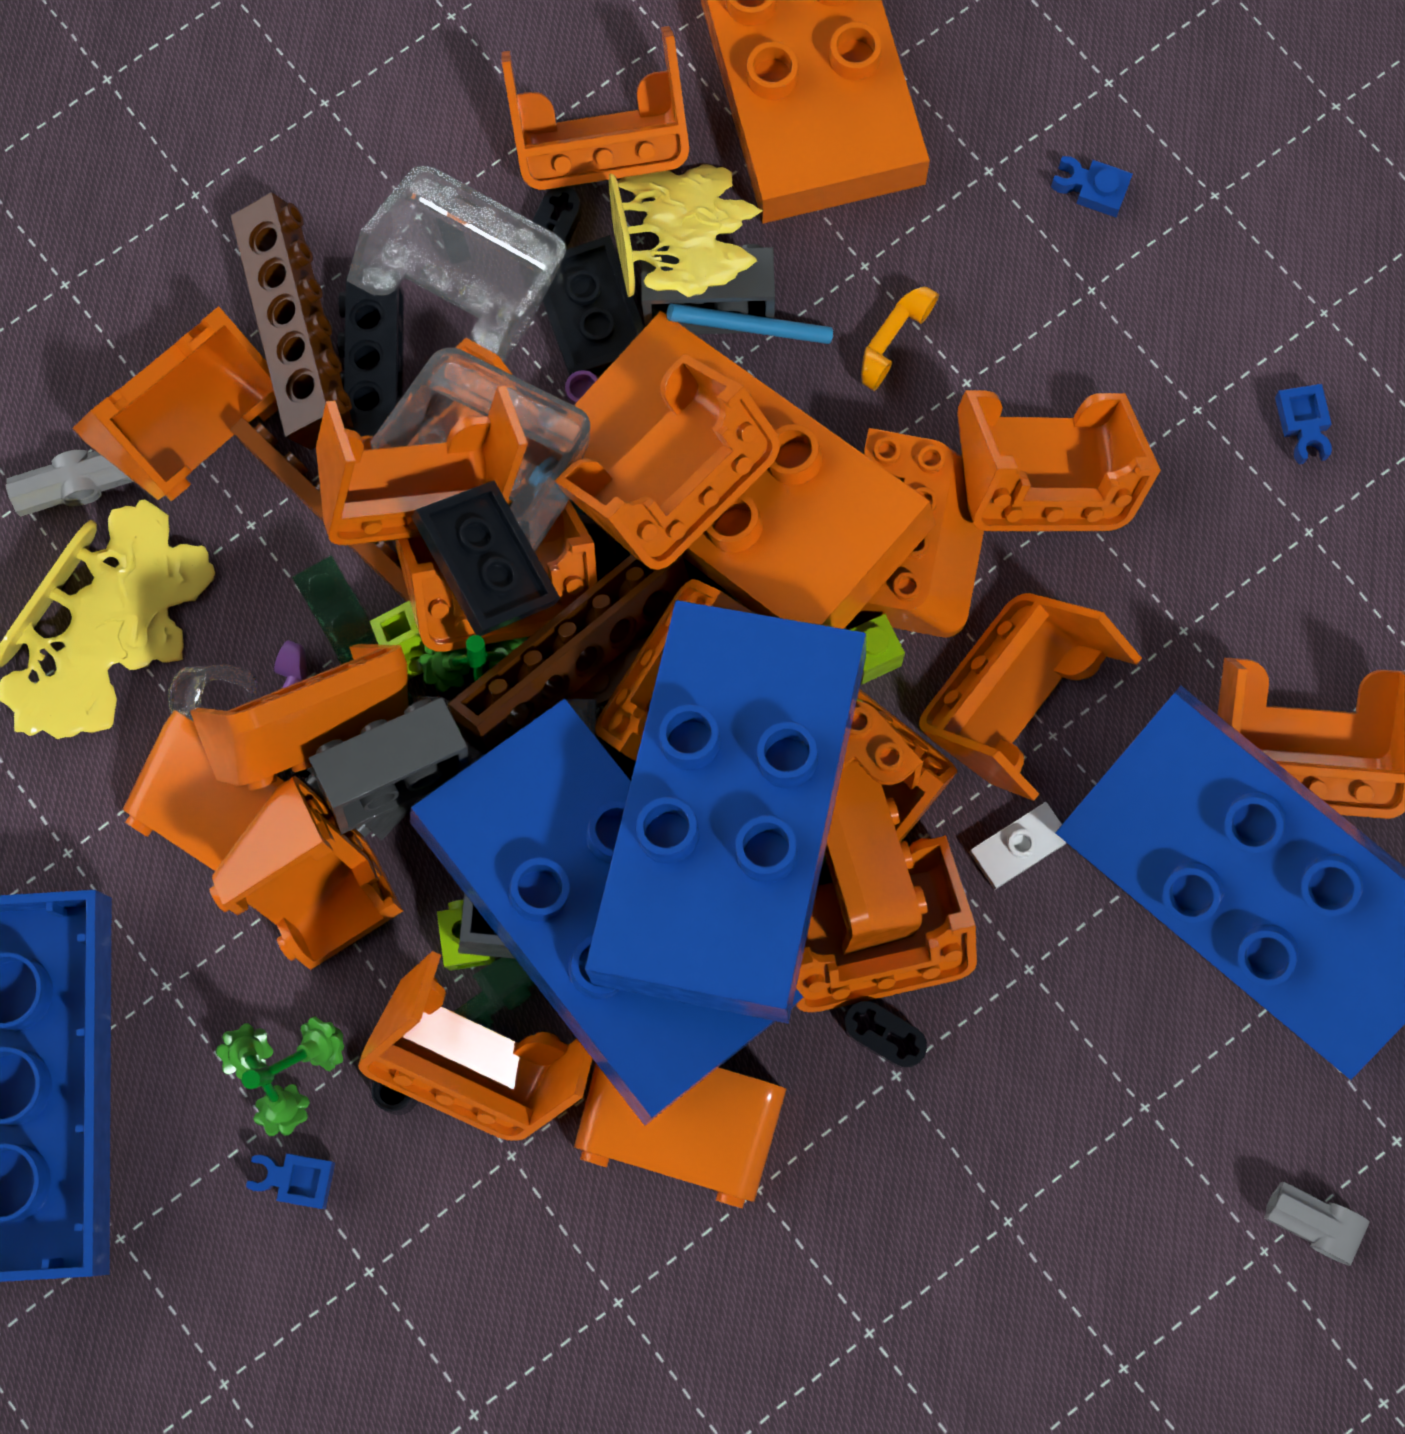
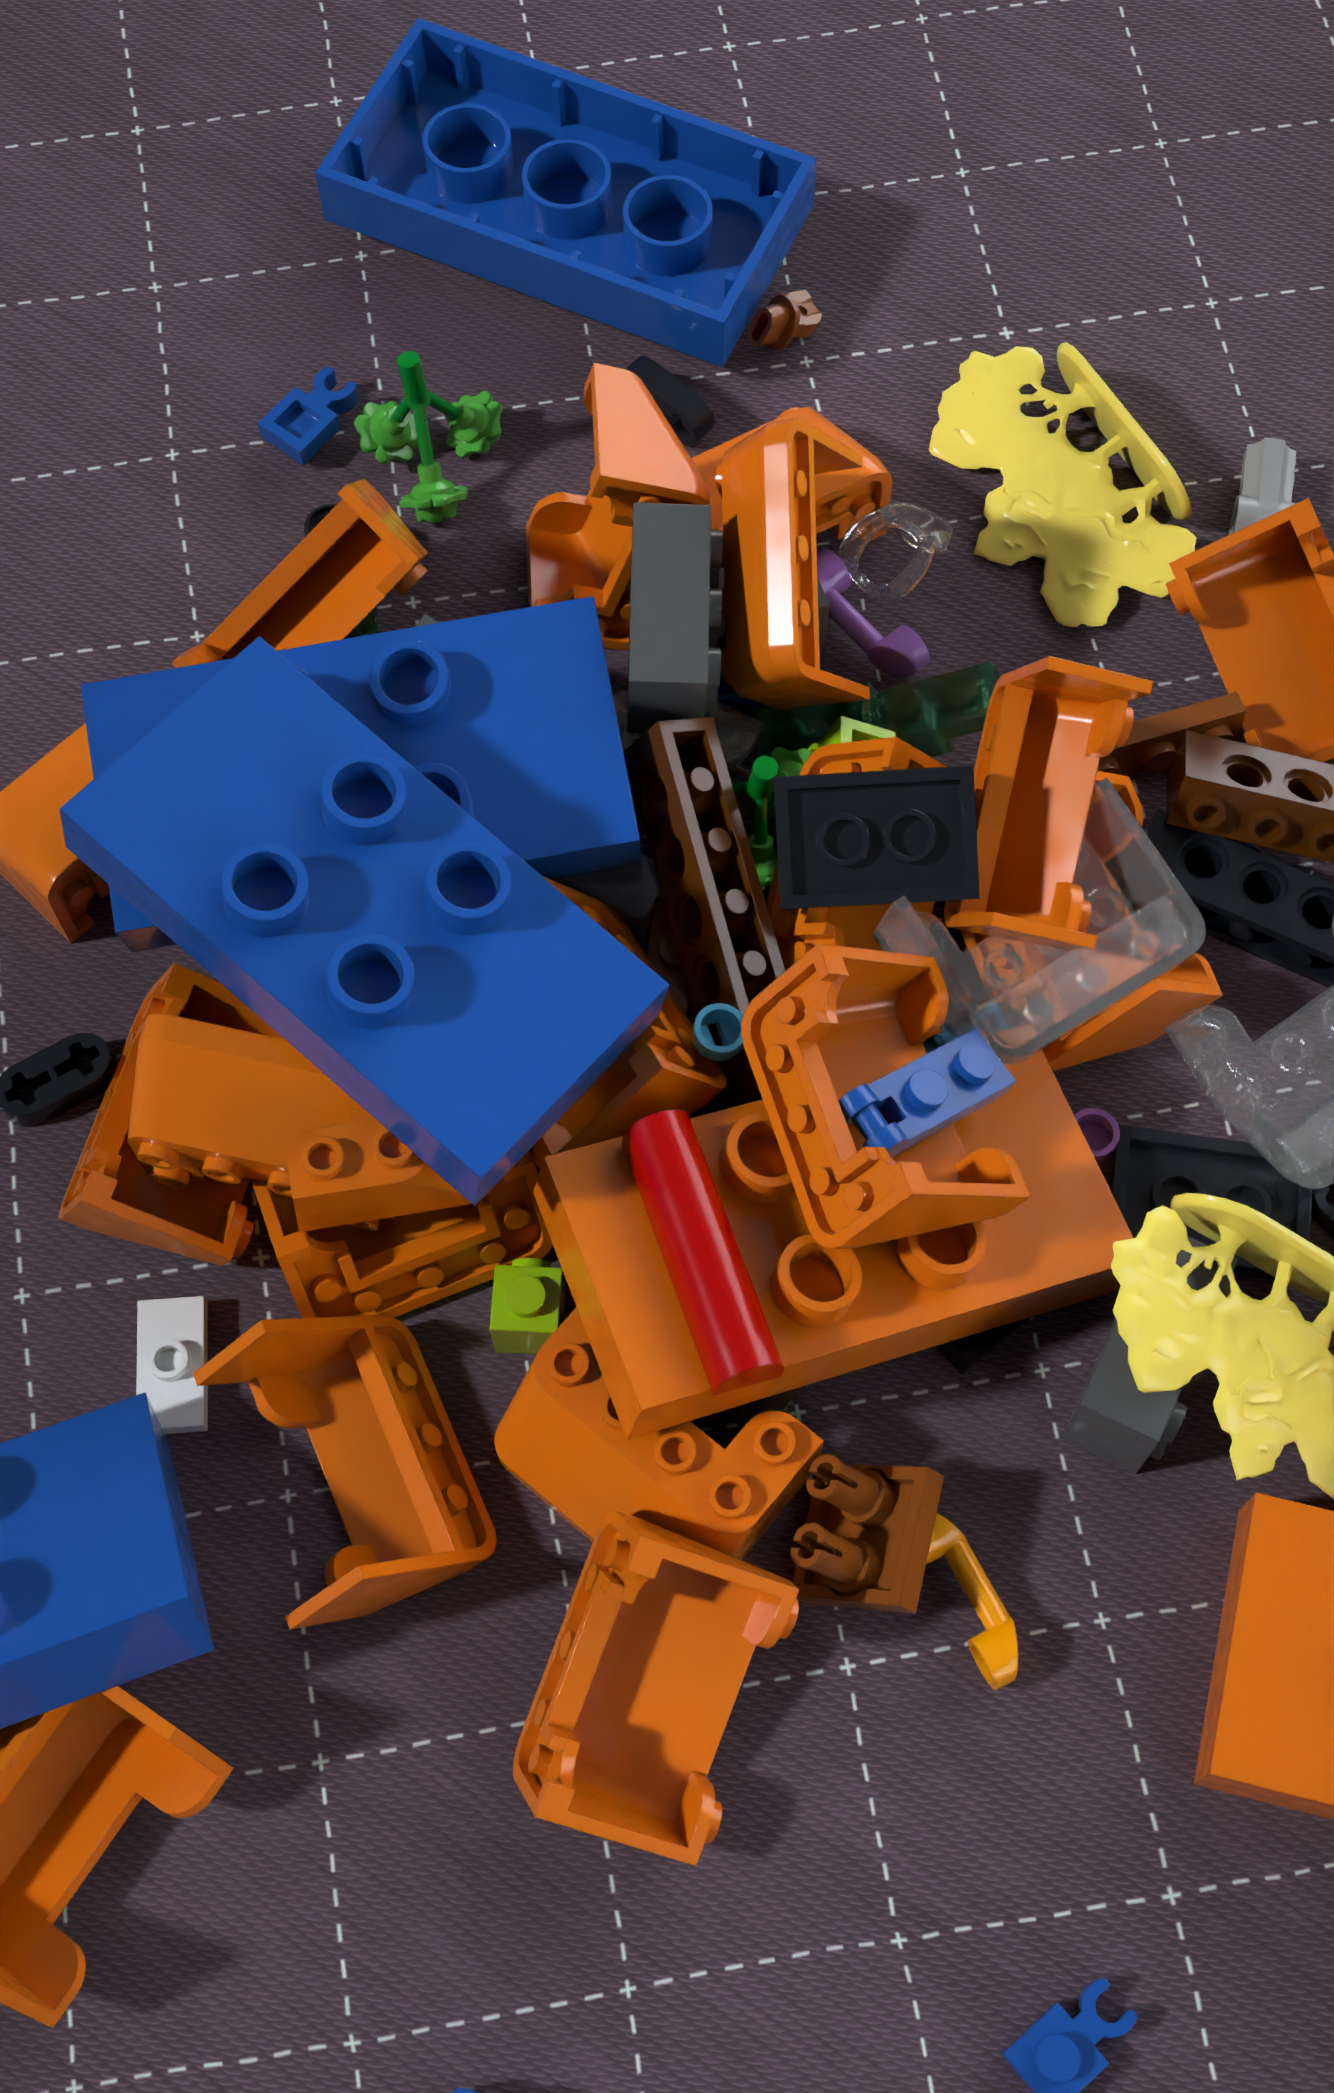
camera: 115 degrees right, 10 degrees down
(42, 876) = (784, 318): none -> dark orange piece
(158, 924) = (679, 403): none -> black beam
(646, 446) = (927, 1093): none -> plate
(656, 589) = (728, 1026): none -> medium azure hinge
(749, 323) = (1064, 1398): dark azure bar -> none
(817, 518) = (701, 1252): none -> red brick
(900, 390) = (866, 1535): none -> dark orange plate

